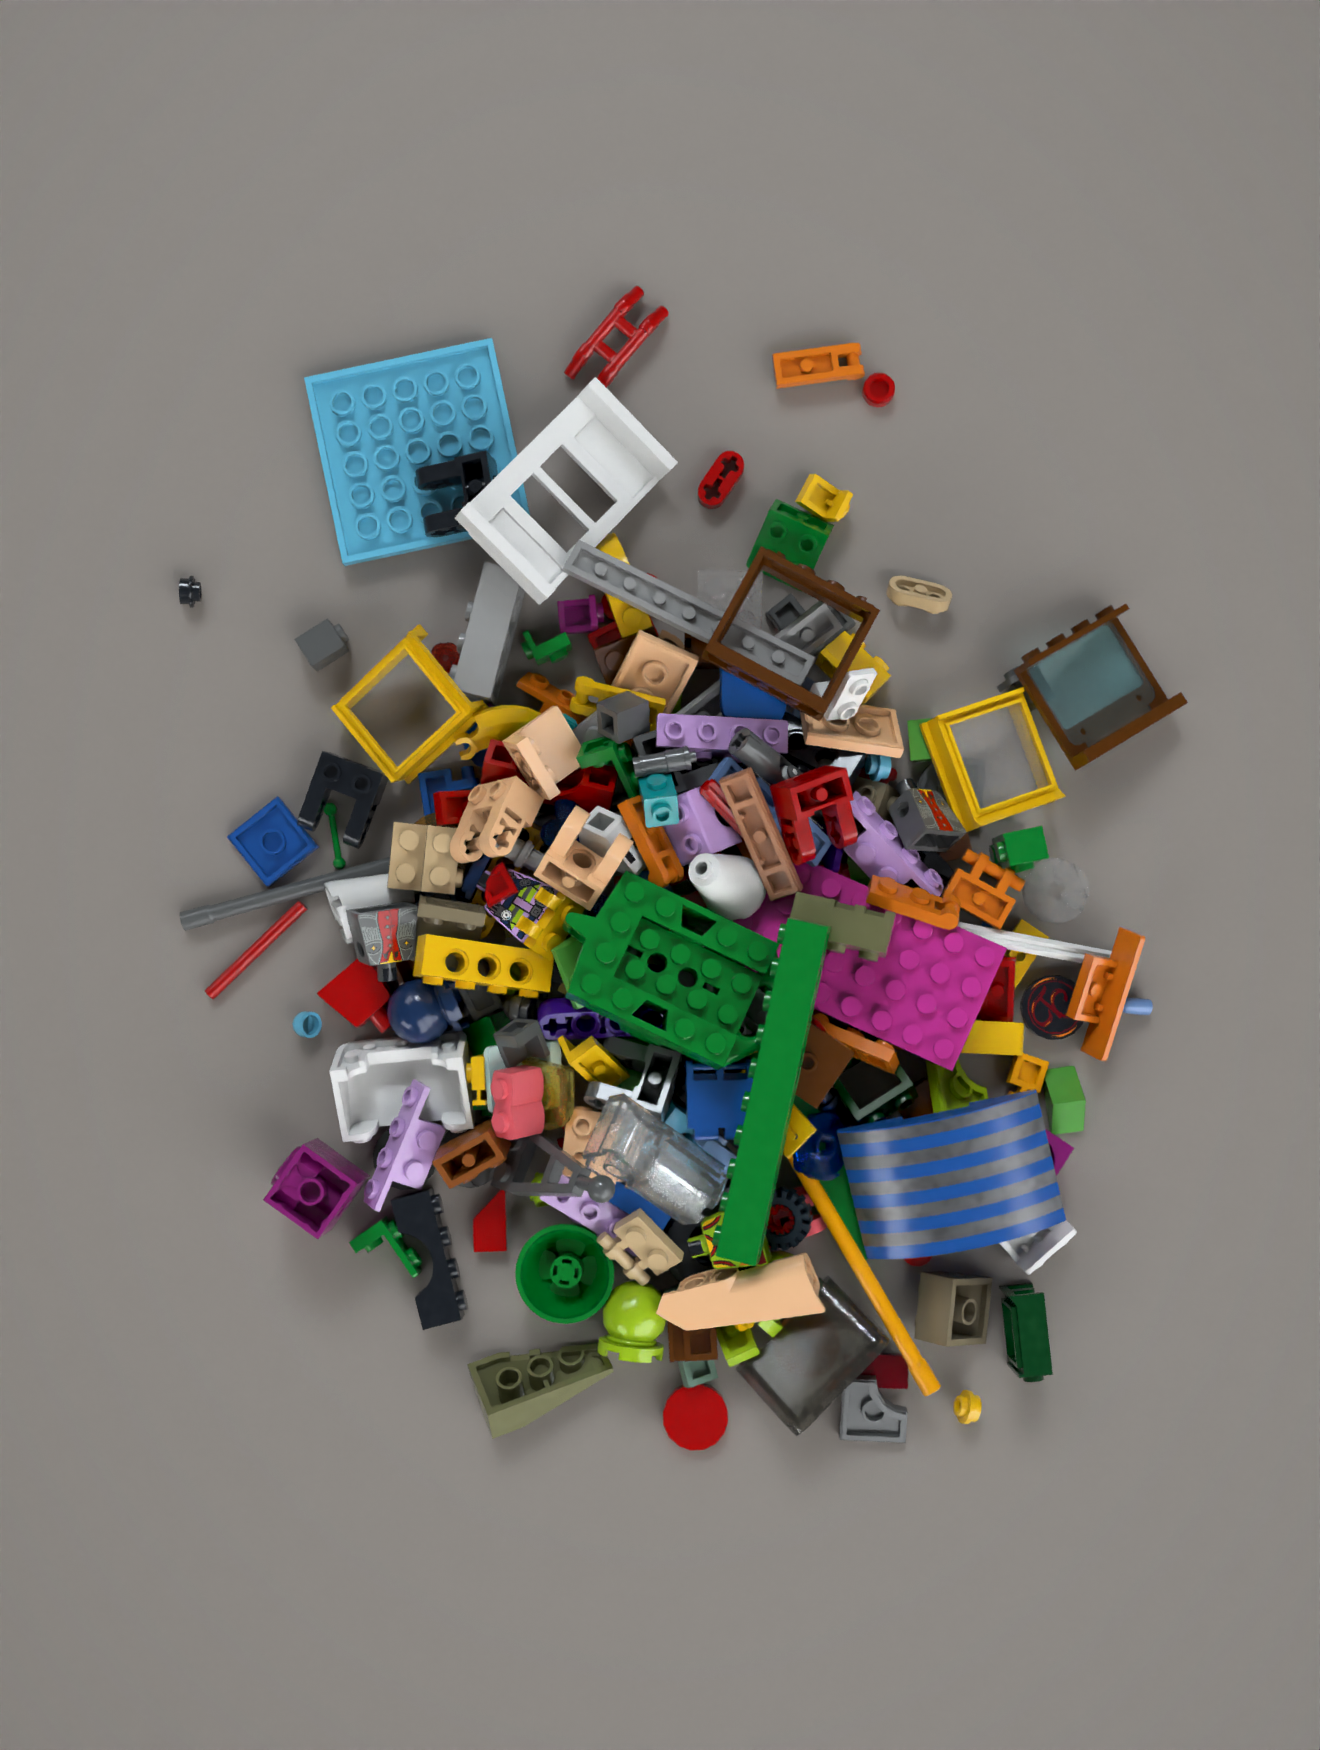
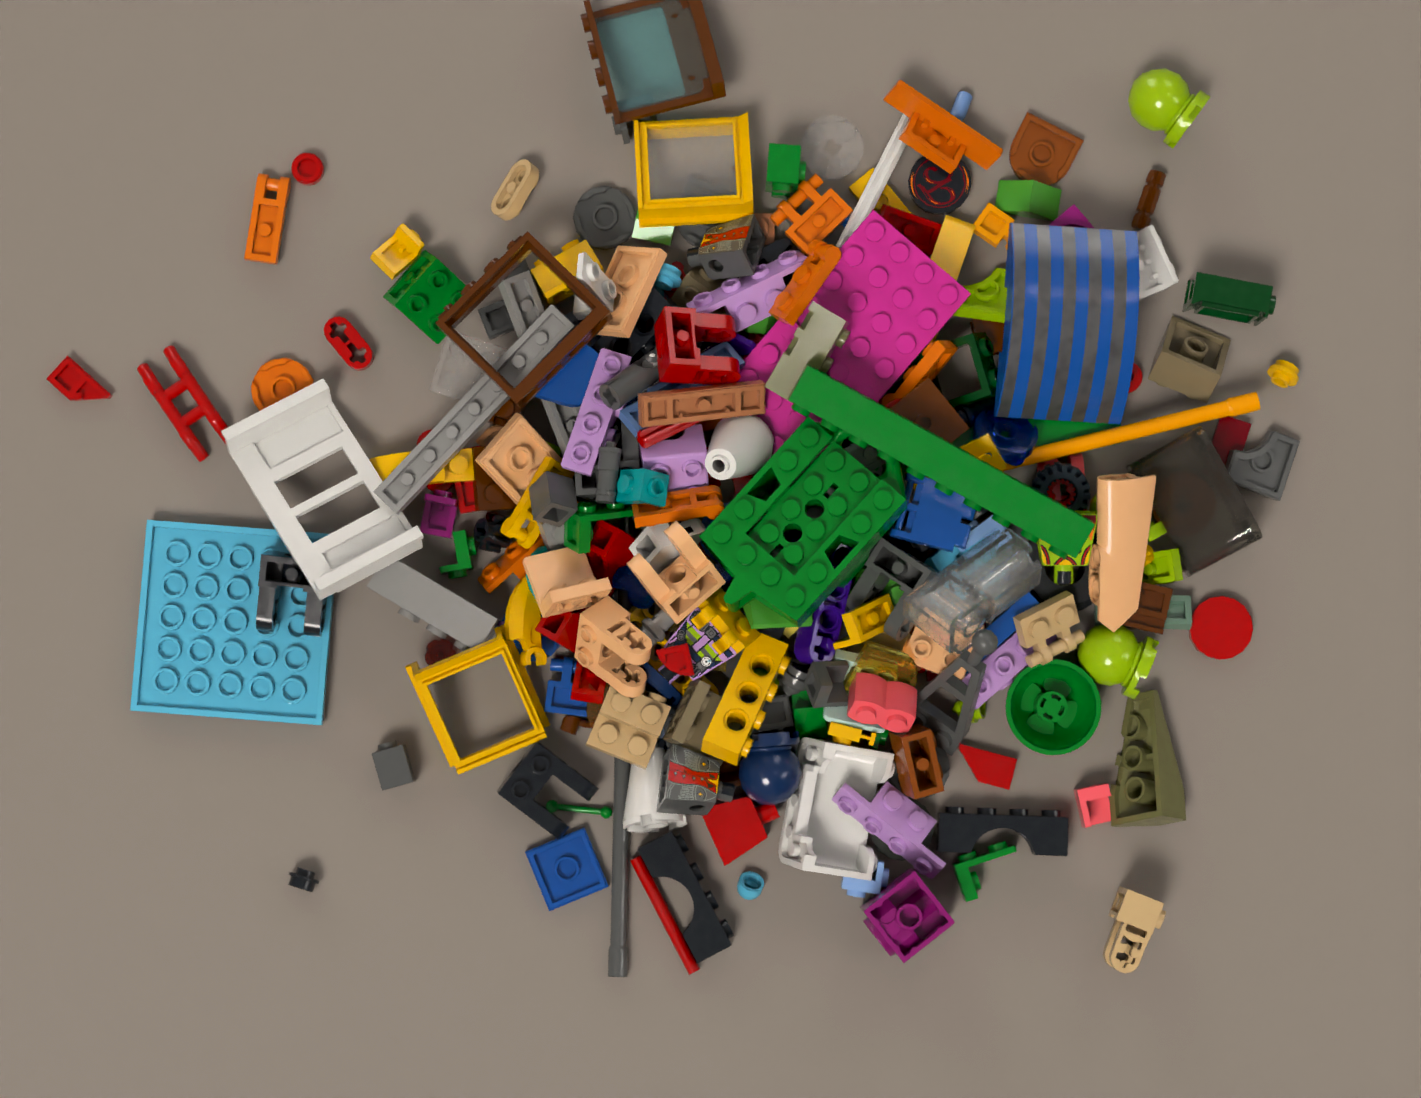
camera: 75 degrees left, 0 degrees up
(308, 936) = (705, 933): none -> black arch
(333, 1134) = (860, 887): none -> light blue bracket
(379, 1419) = (1135, 920): none -> tan brick
(414, 803) = (571, 724): none -> reddish brown hand
(484, 1339) = (1093, 804): none -> coral panel
(574, 666) = (489, 534): none -> black gear
(605, 233) = (76, 382): none -> red tile
(665, 423) = (278, 380): none -> orange tile
(918, 689) = (604, 217): none -> dark grey tile
(1100, 1220) = (1148, 199): none -> reddish brown axle
(1116, 1100) = (1042, 151): none -> dark orange tile
(1202, 1209) = (1164, 103): none -> lime tile

